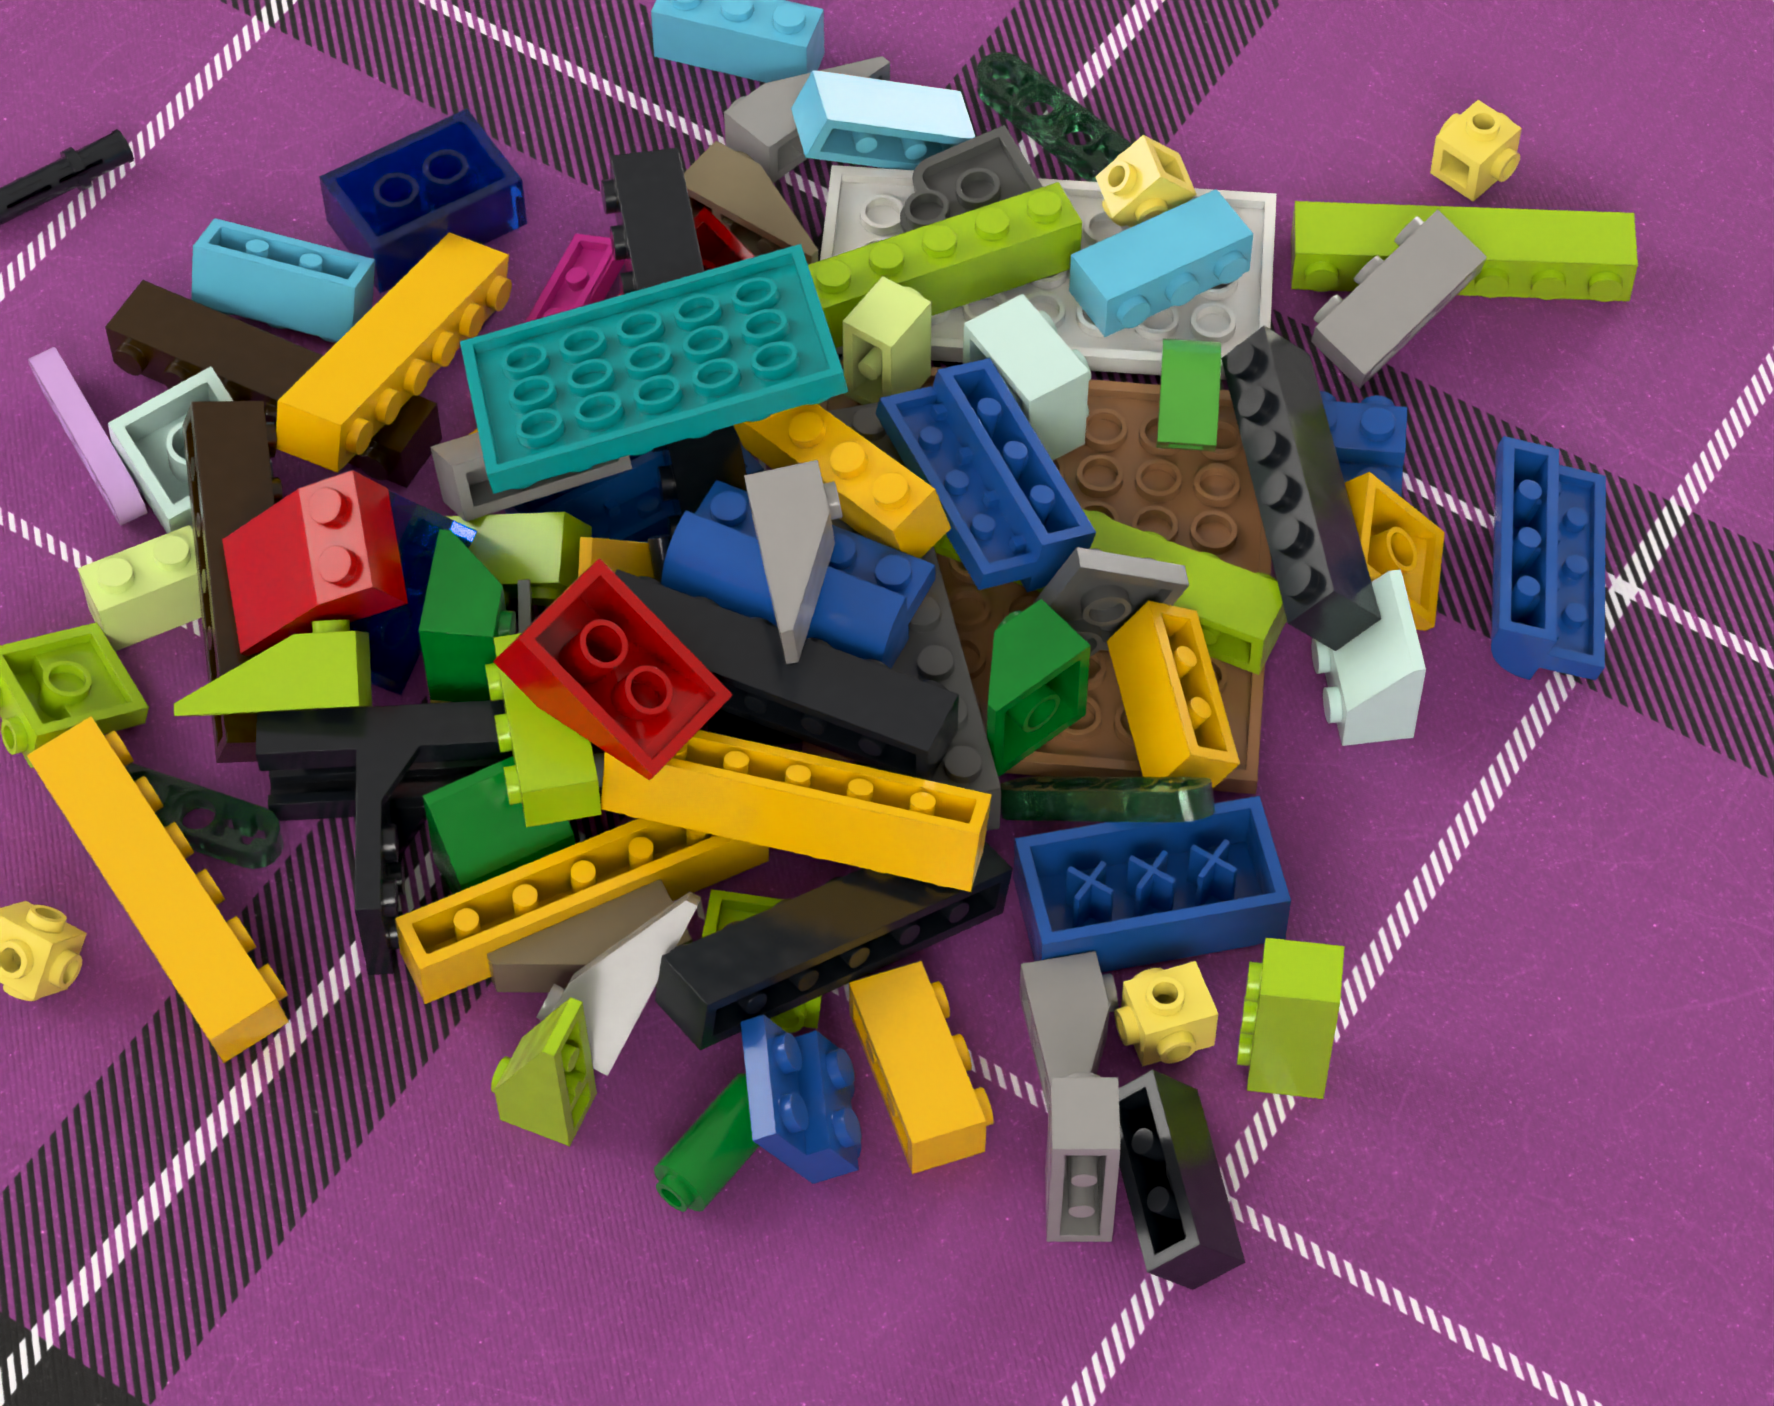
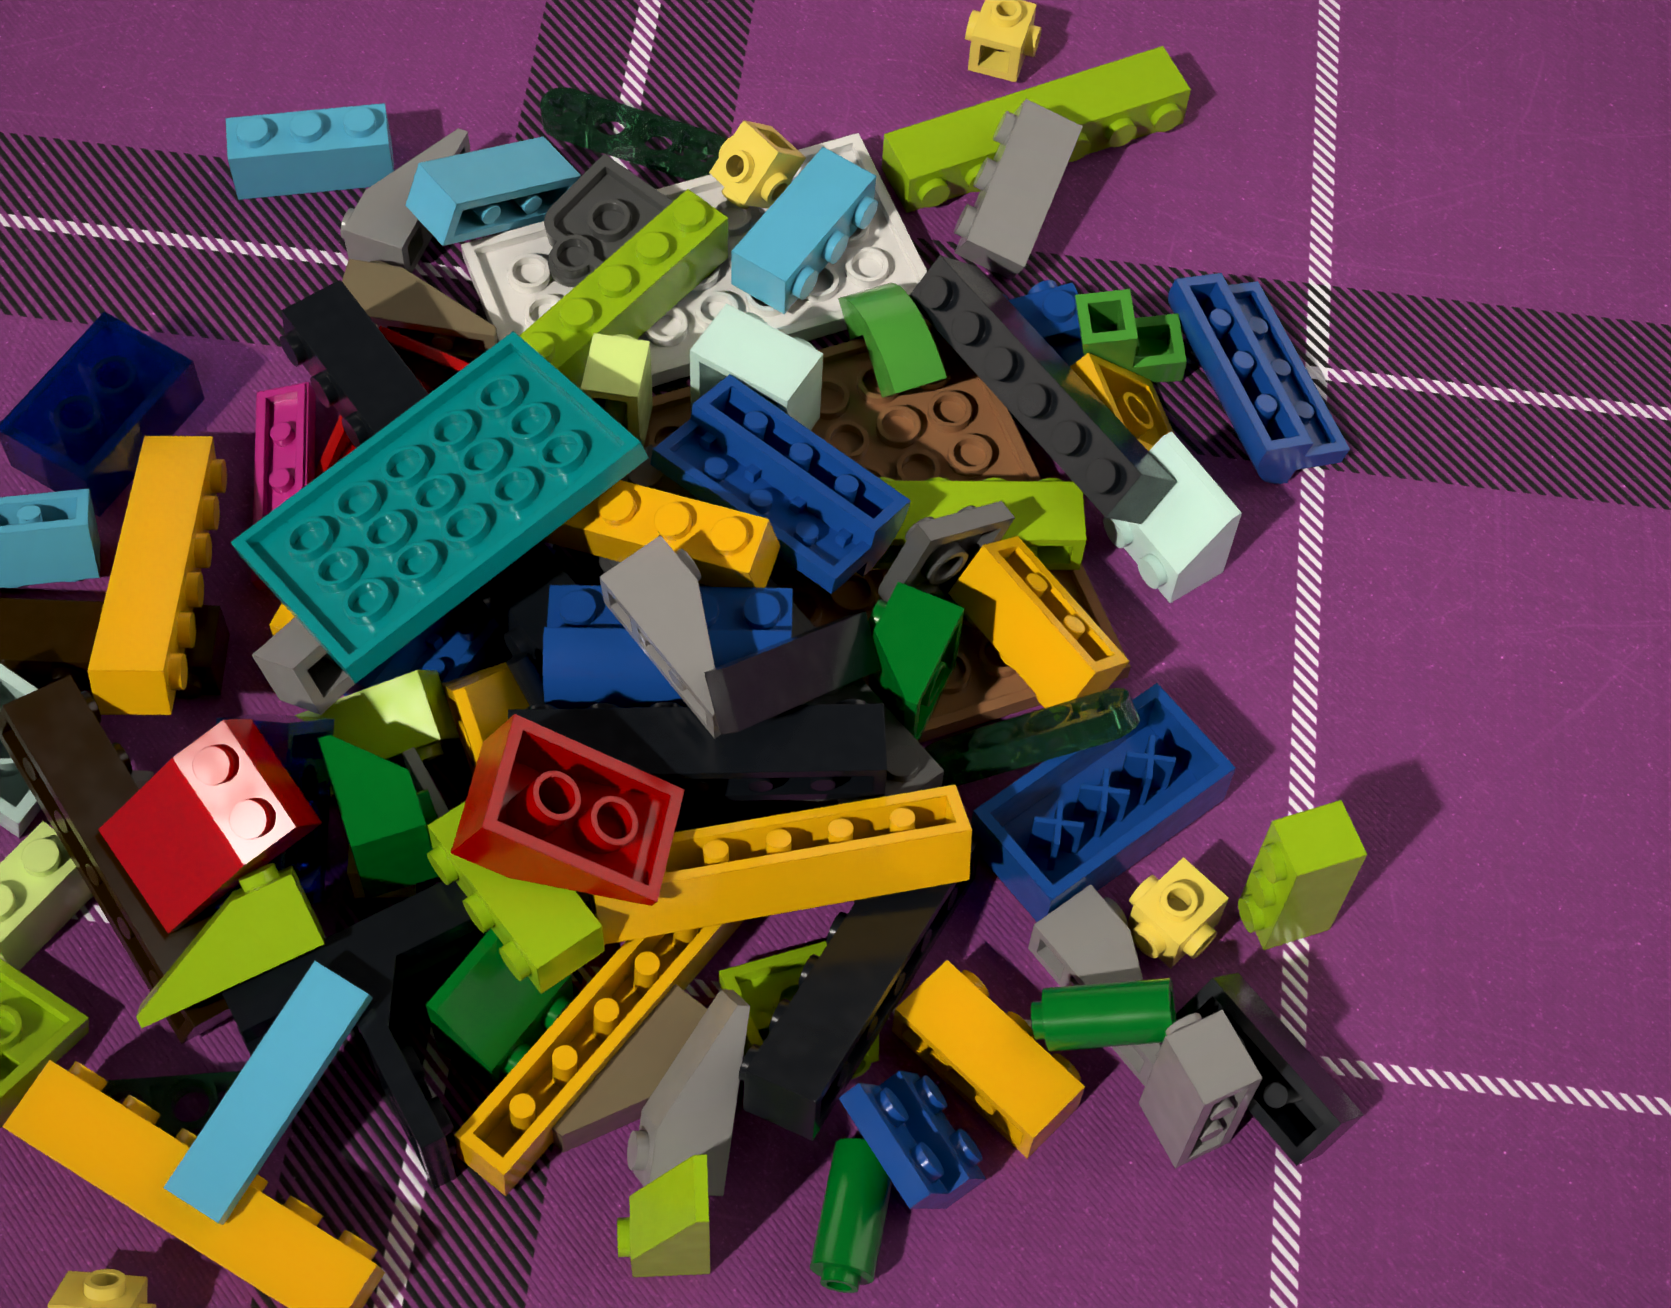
camera: 30 degrees left, 5 degrees up
(253, 813) = (268, 1093): none -> medium azure tile
(886, 631) = (791, 672): none -> black tile
(1026, 1056) = (1104, 1014): none -> green brick
(1449, 494) = (1142, 345): none -> bright green brick

